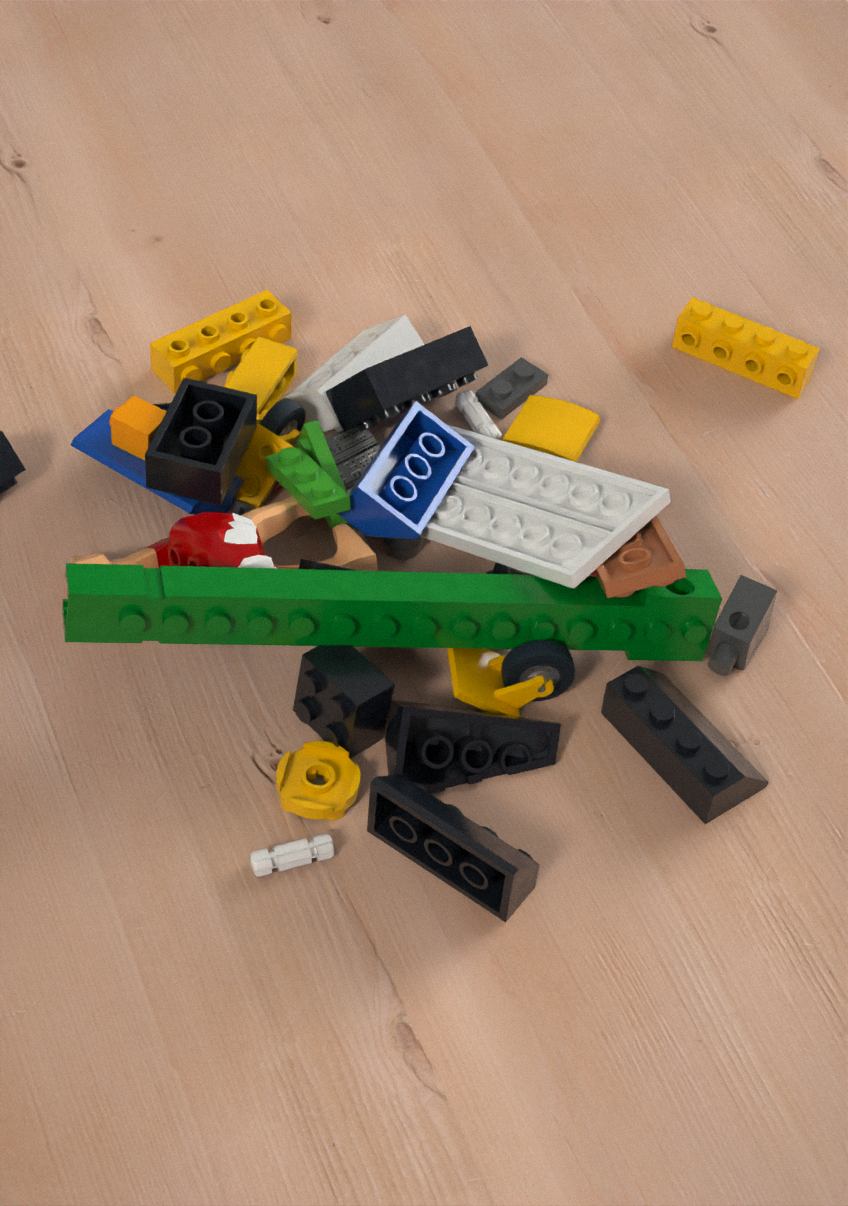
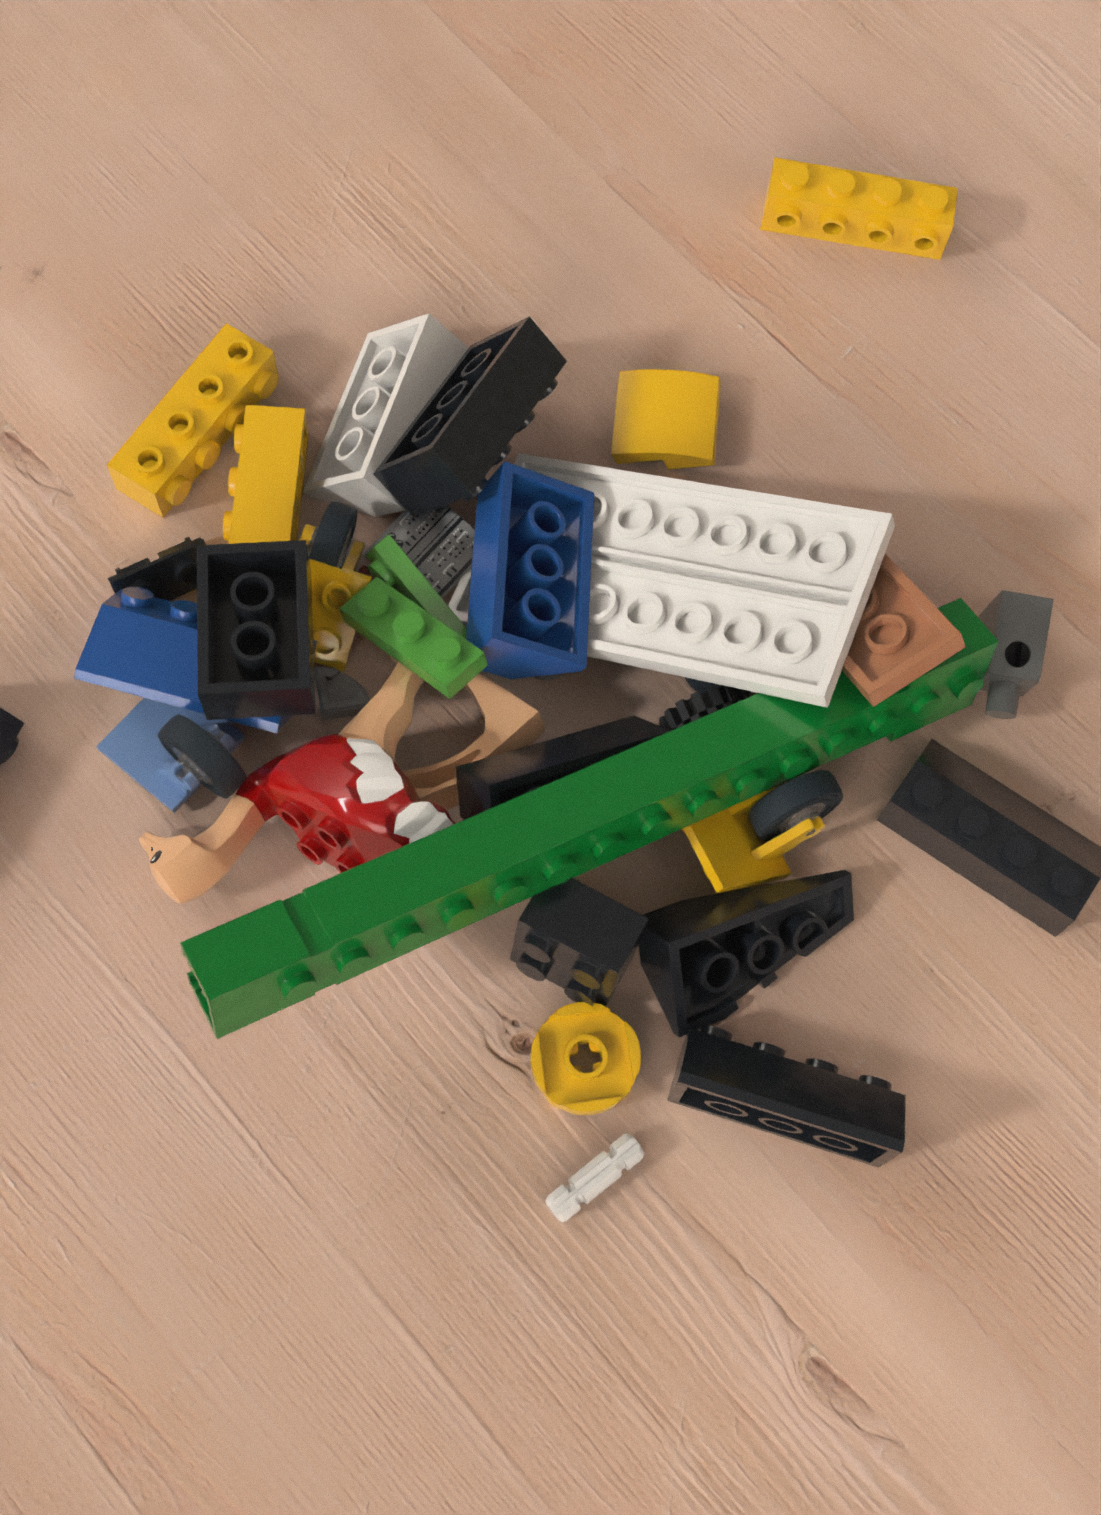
camera: 20 degrees left, 20 degrees up
(119, 516) = (175, 752): none -> medium blue plate
(135, 425) = (160, 631): light orange brick -> none
(476, 415) = (570, 431): white axle -> none
(511, 388) = (590, 364): dark grey plate -> none

